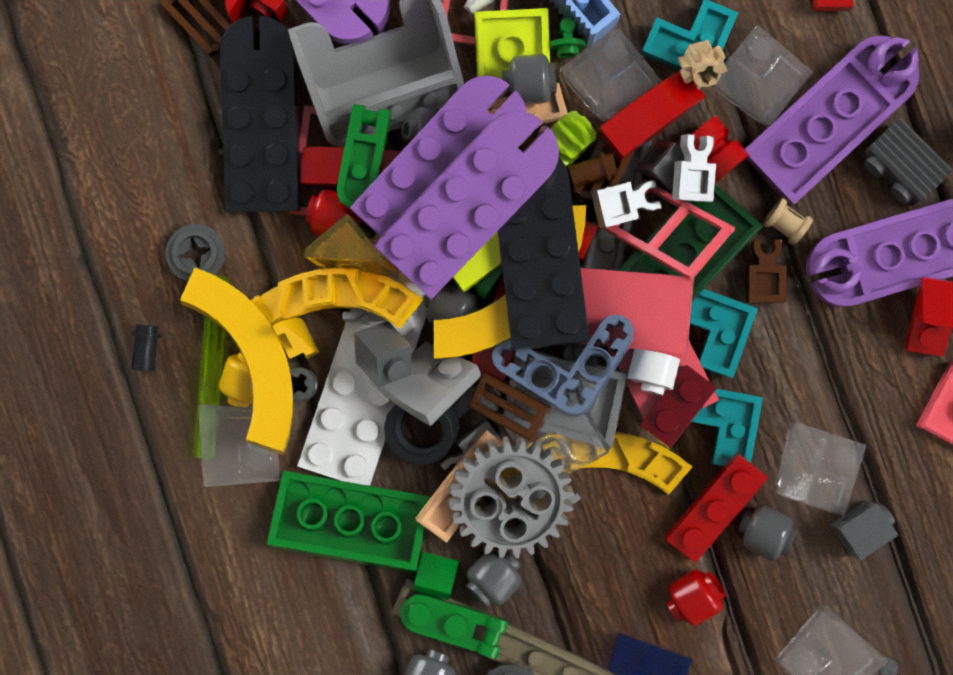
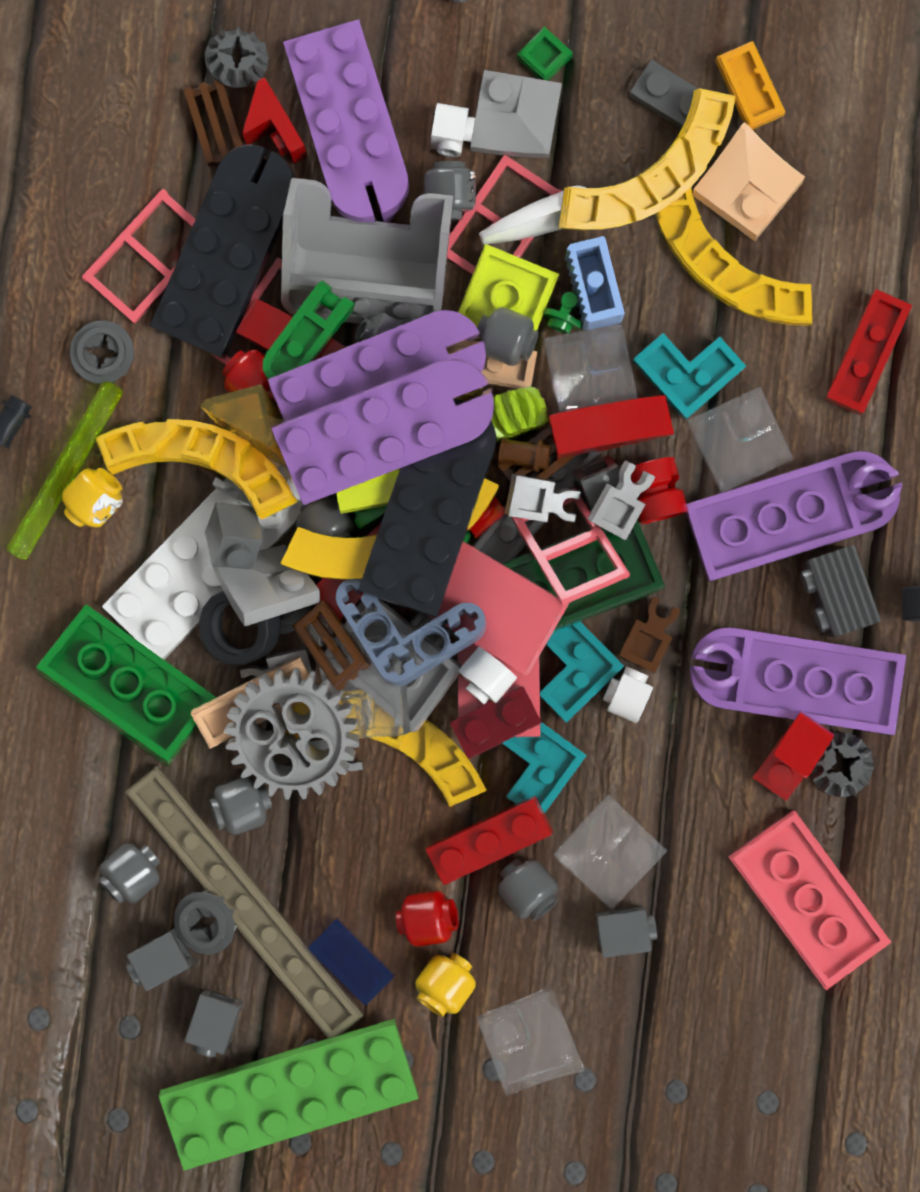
camera: 30 degrees right, 0 degrees up
(169, 148) = (126, 236): none -> coral window
(224, 449) = (54, 558): clear plate -> none
(260, 348) = (118, 476): yellow tile -> none
(295, 338) = (159, 481): yellow slope -> none
(311, 382) = (130, 525): dark grey bush -> none
(435, 575) = (185, 776): green tile -> none
(453, 623) = (179, 830): green plate -> none
(702, 64) = (682, 401): tan gear -> none
(737, 645) = (445, 984): none -> yellow head
(773, 330) = (628, 695): none -> white plate
(787, 221) = (696, 595): tan bush -> none

